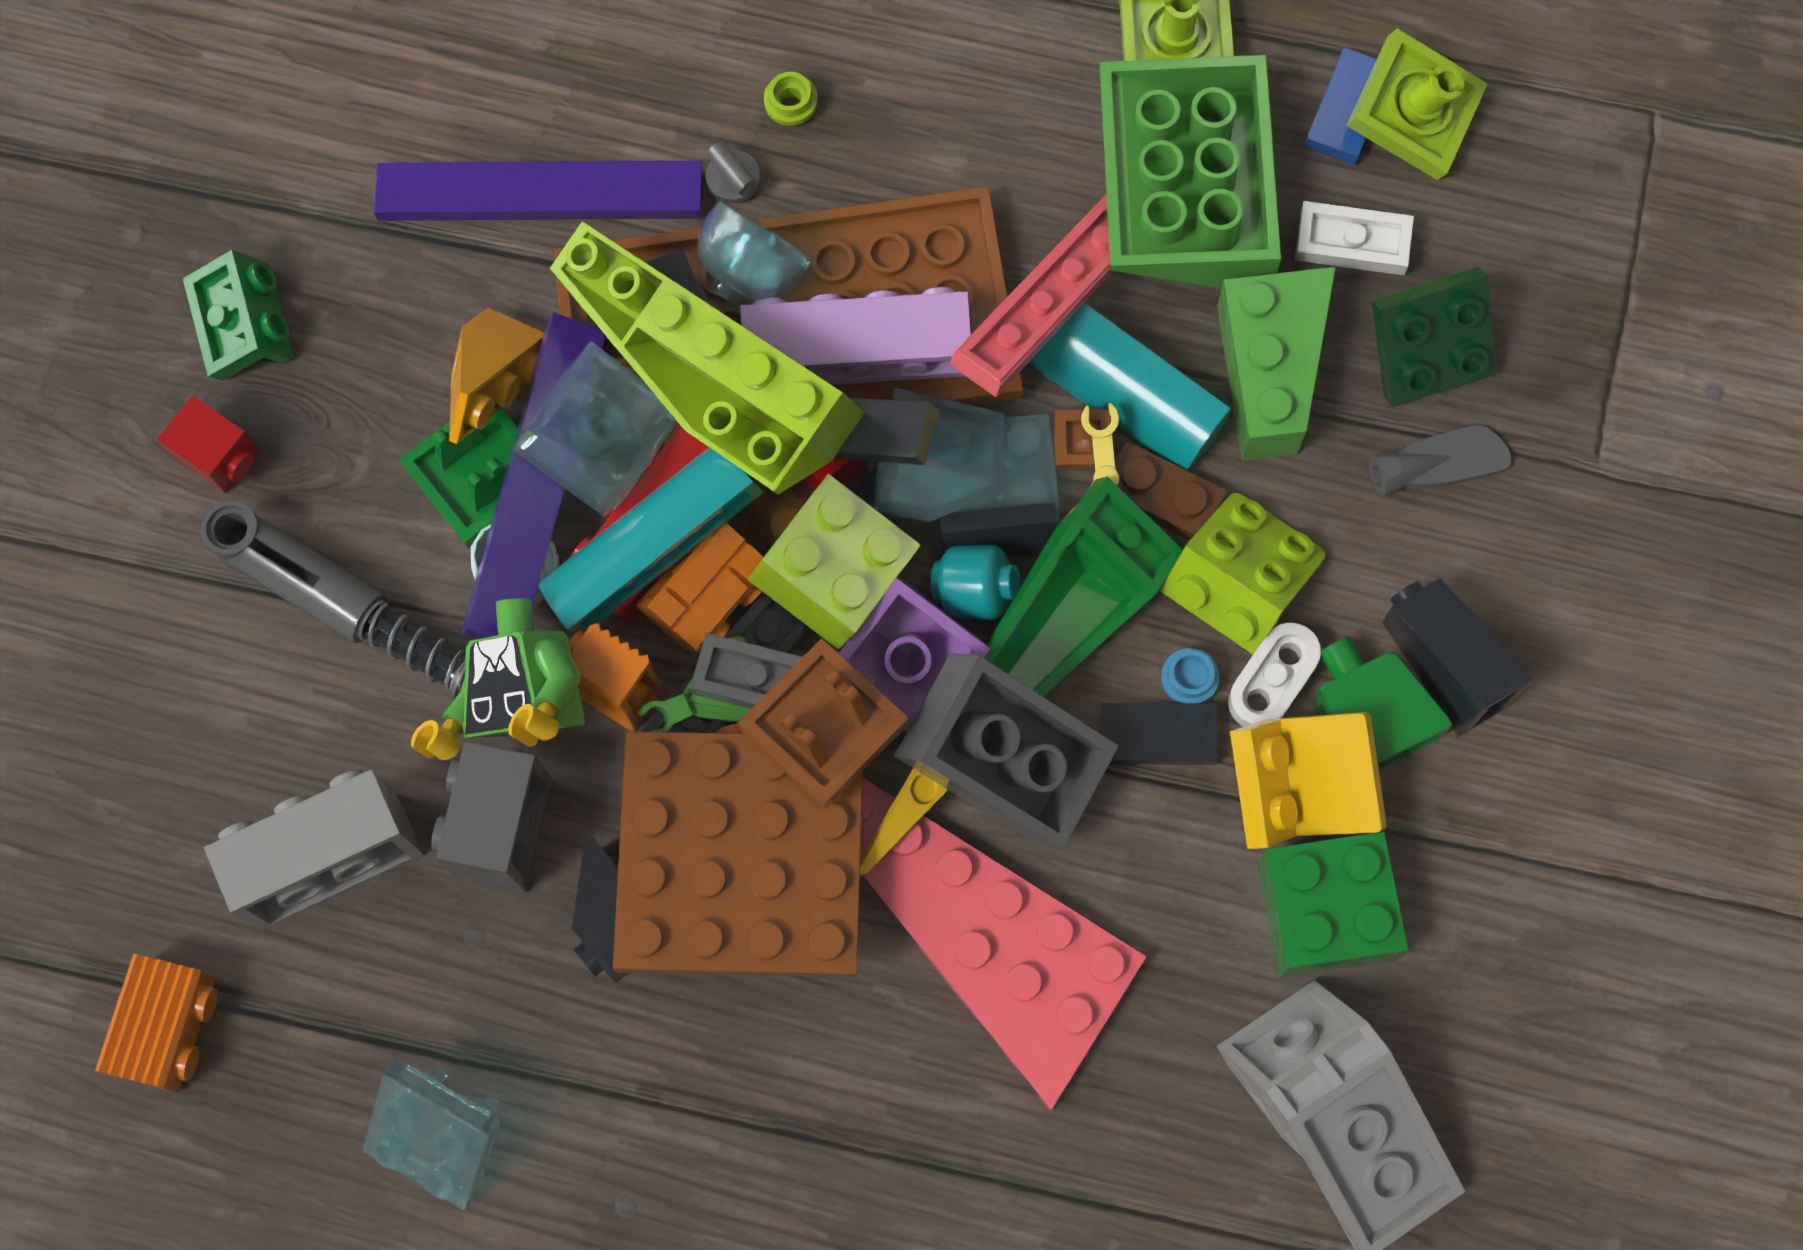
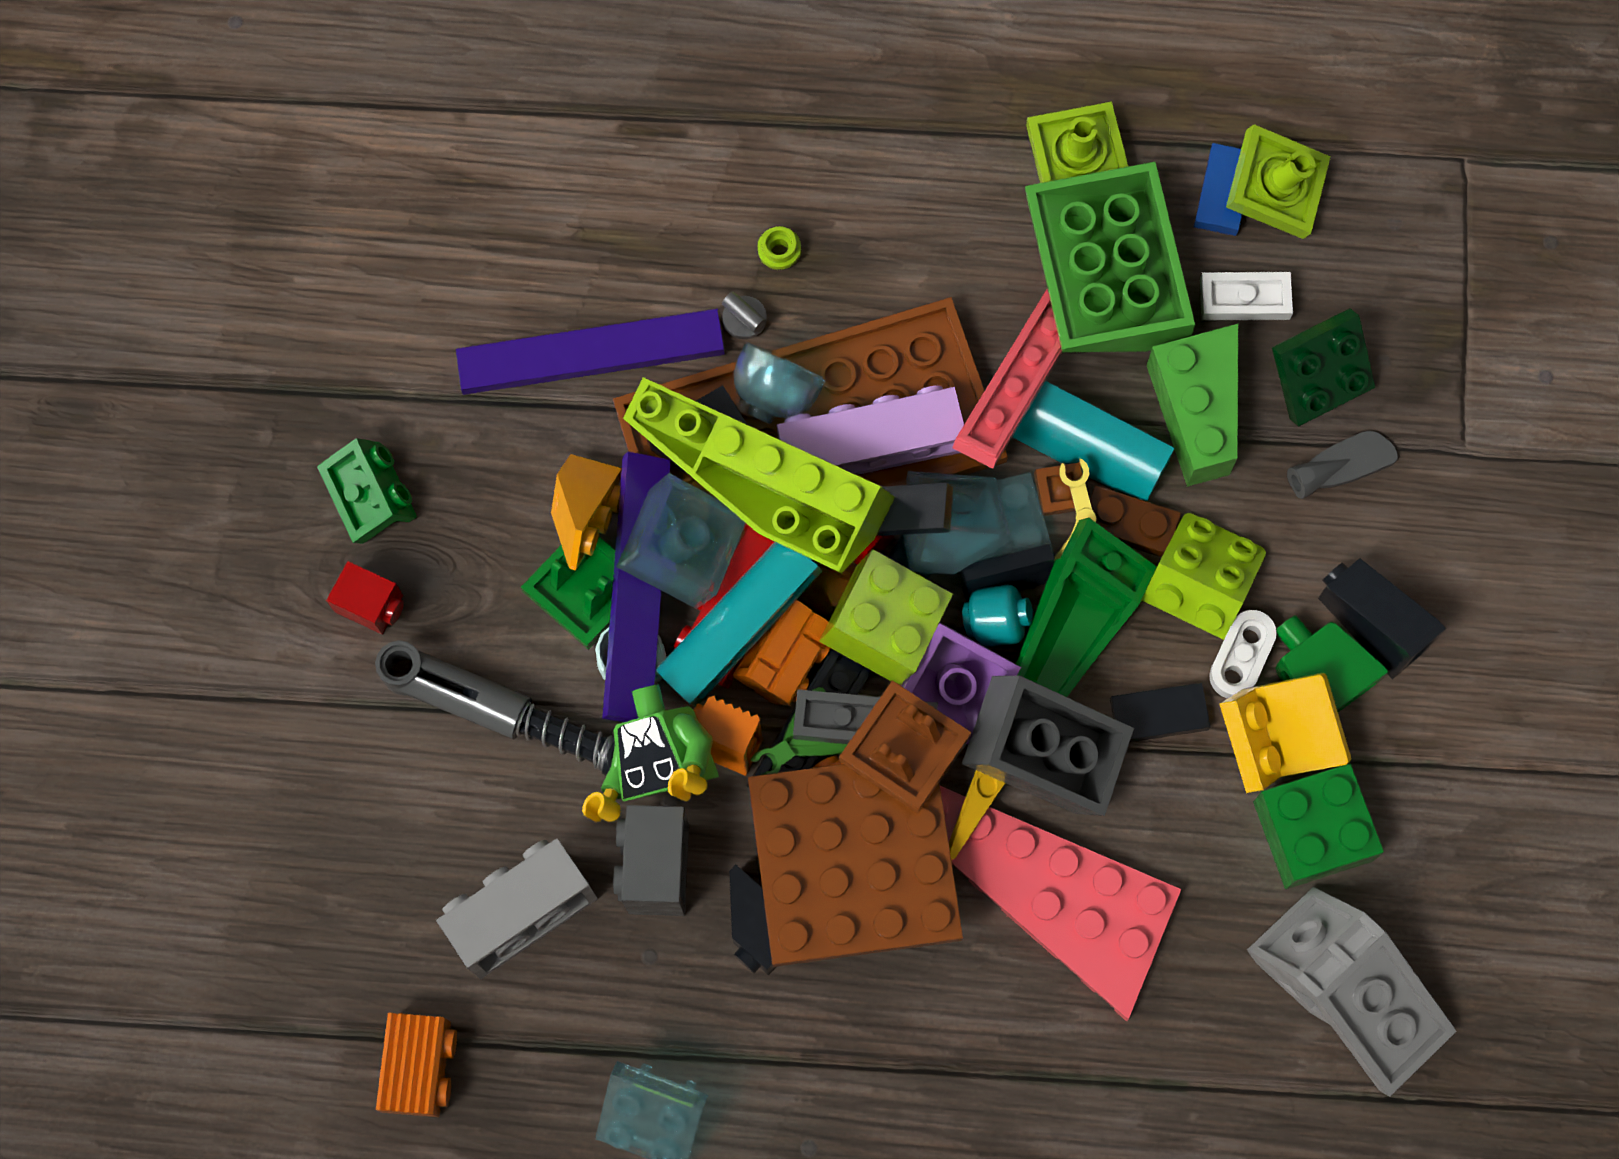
camera: 10 degrees left, 0 degrees up
(1190, 676) = (1176, 664): dark azure plate -> none

